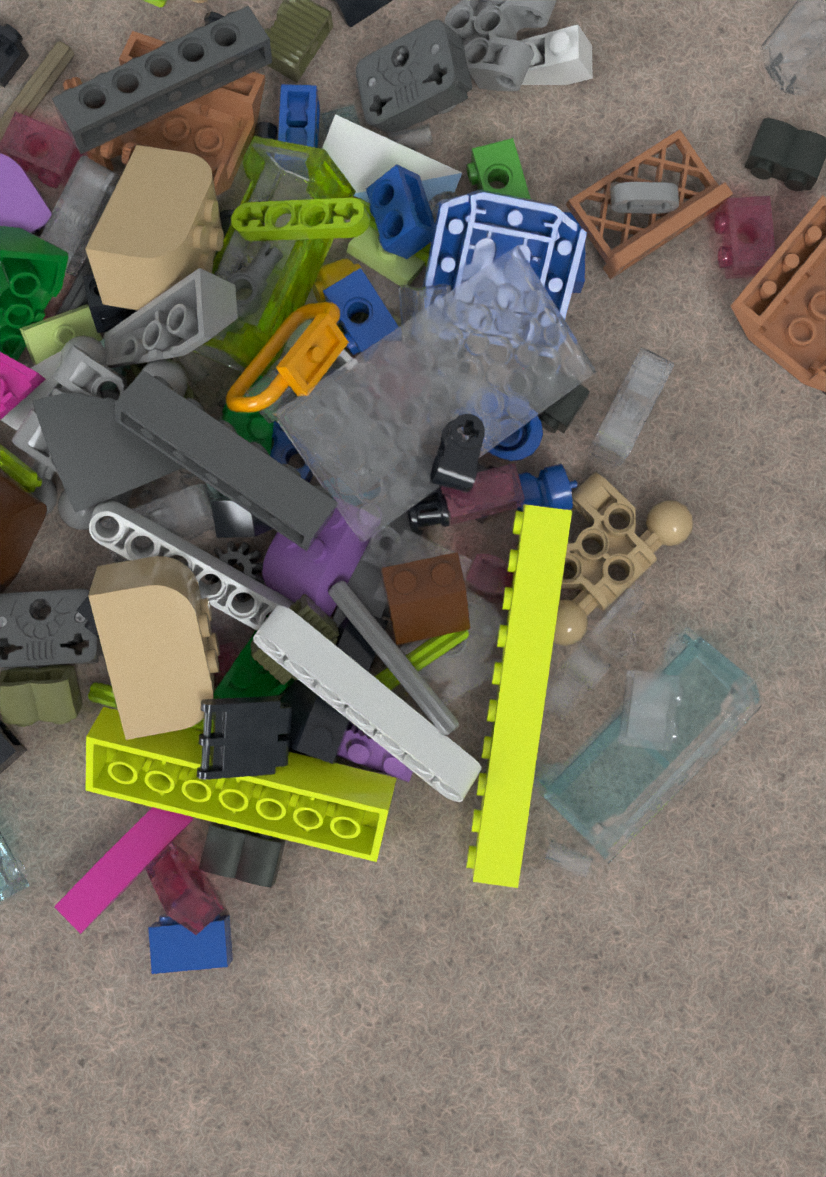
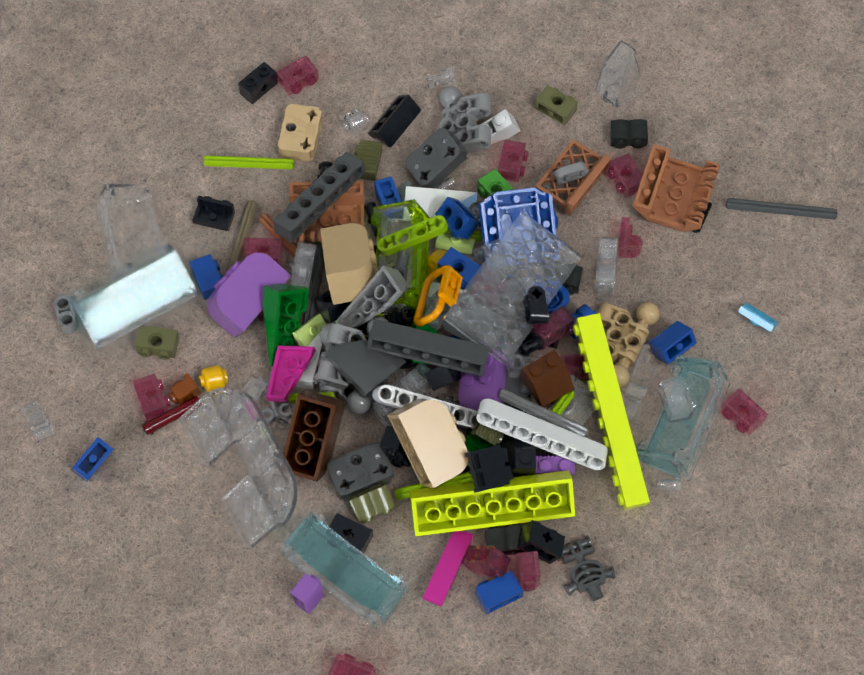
camera: 25 degrees left, 20 degrees down
(210, 375) = (402, 317): none -> black connector
(249, 934) = (528, 570): none -> clear pink brick
(296, 888) = (542, 539): none -> black brick
(357, 993) = (591, 581): none -> dark grey piece
(556, 114) = (511, 152): none -> clear pink brick
(679, 68) = (546, 104): none -> olive brick
(690, 596) = (672, 342): none -> blue brick
(693, 365) = (628, 239): none -> clear pink plate
(776, 789) = (739, 403): none -> clear pink brick

